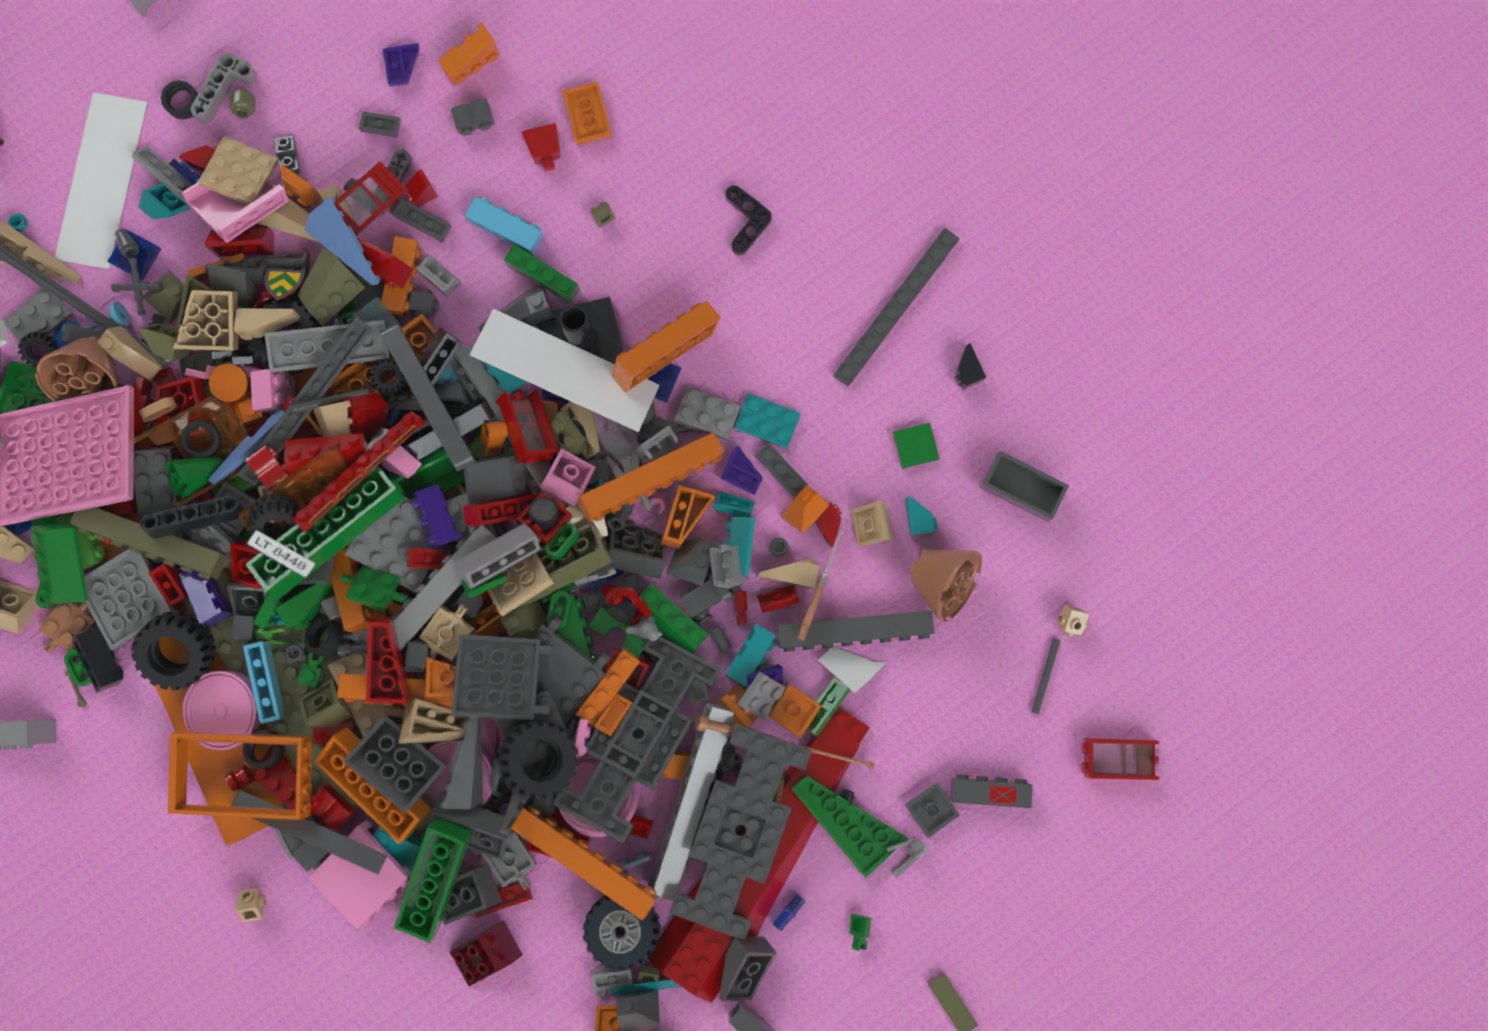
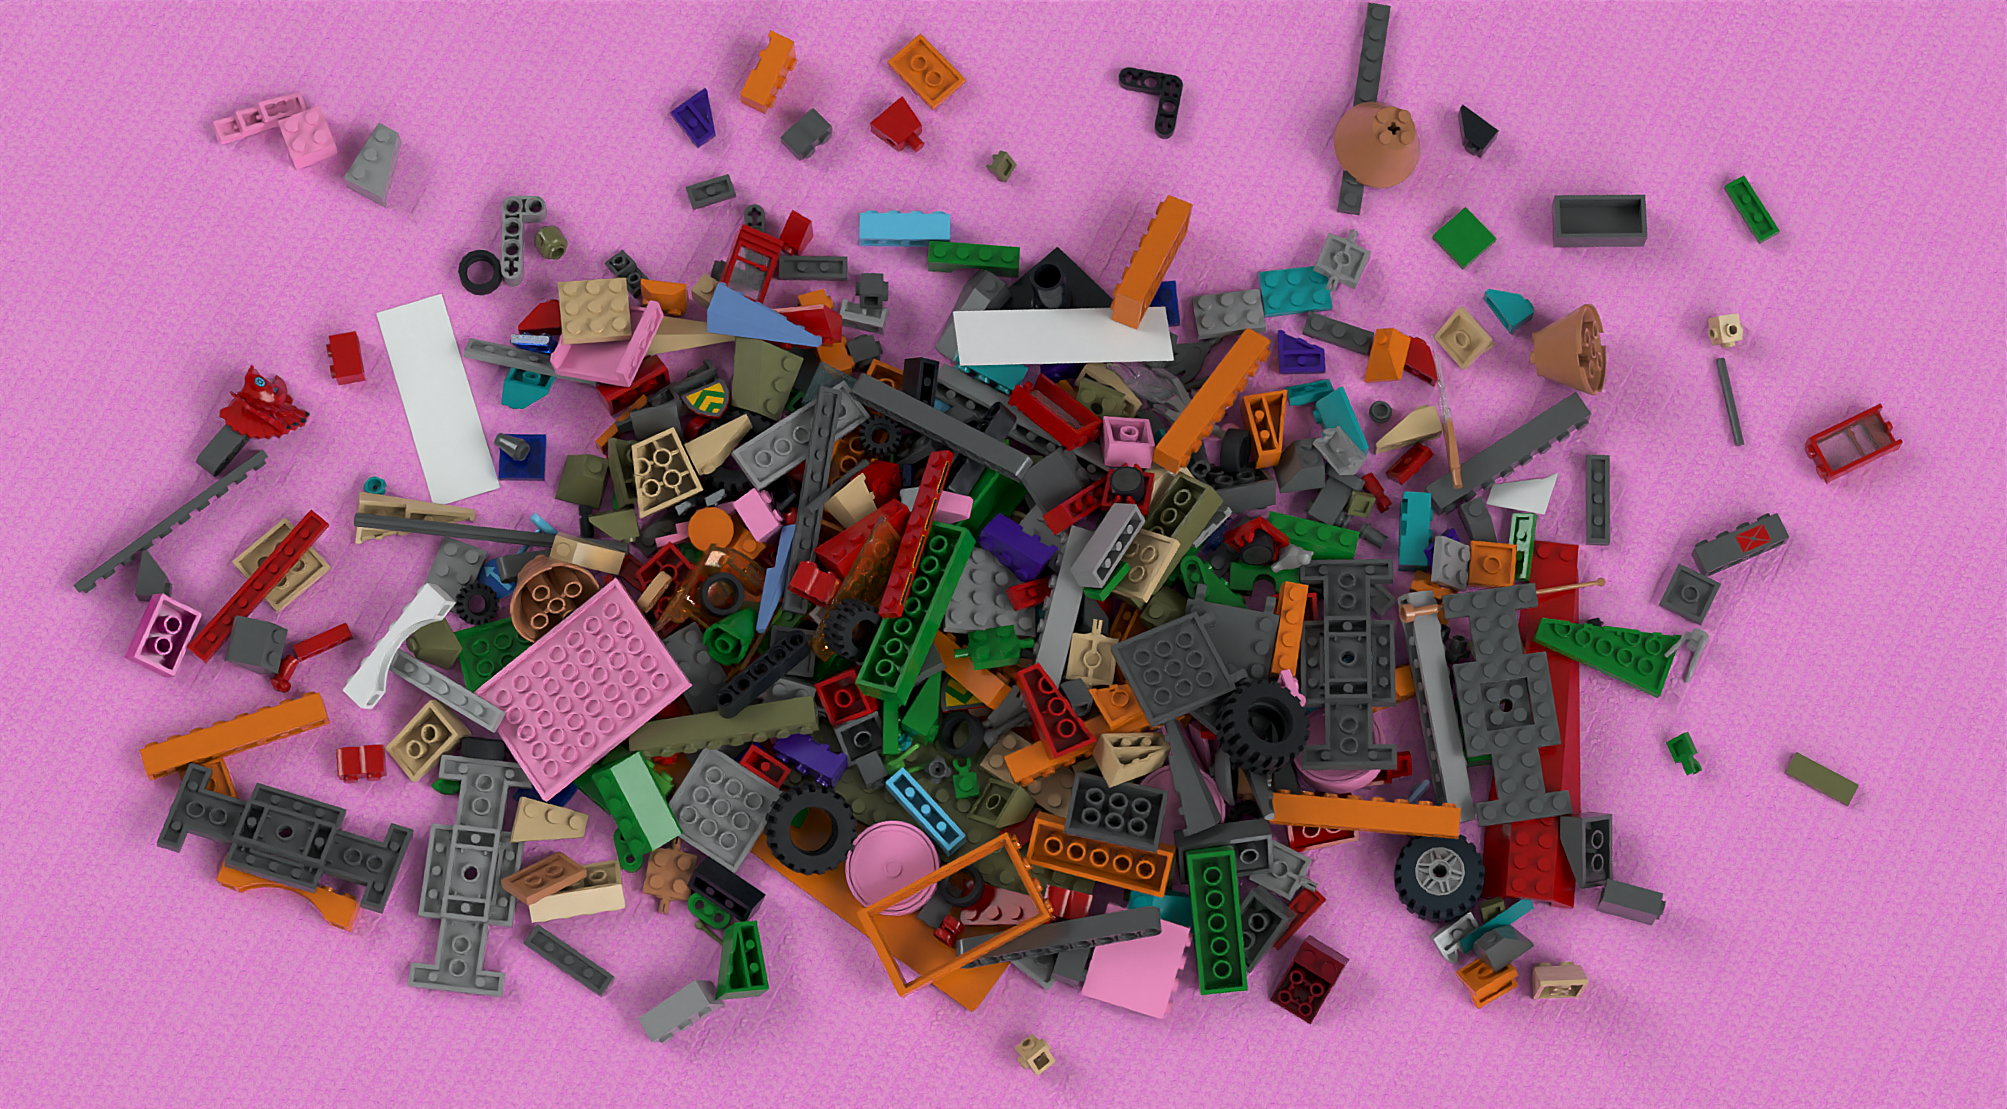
camera: 25 degrees left, 10 degrees down
(49, 115) = (346, 358): none -> red brick
(75, 723) = (741, 963): none -> green wedge
(137, 286) = (546, 486): dark grey piece -> none
(236, 759) = (937, 907): none -> dark grey tile
(281, 553) = (887, 651): white sticker -> none
(295, 383) = (786, 493): none -> black slope
(331, 608) = (956, 697): light grey tile -> none
(454, 260) = (872, 290): none -> dark grey brick
(493, 437) = (1026, 438): orange piece -> none
(562, 541) = (1161, 507): green plate -> none
(613, 715) = (1311, 654): orange tile -> none
(649, 523) = (1235, 450): none -> black tyre
(657, 445) = (1198, 368): light grey hinge -> none
(722, 611) = (1360, 504): none -> olive plate
(789, 912) = (1601, 773): clear blue axle -> none
(803, 672) = (1477, 521): none -> dark grey slope
(813, 416) = (1341, 260): none -> light grey plate
(889, 340) = (1377, 144): none -> nougat cone
(903, 700) = (1598, 500): none -> dark grey plate
(1145, 536) = (1751, 209): none -> green plate

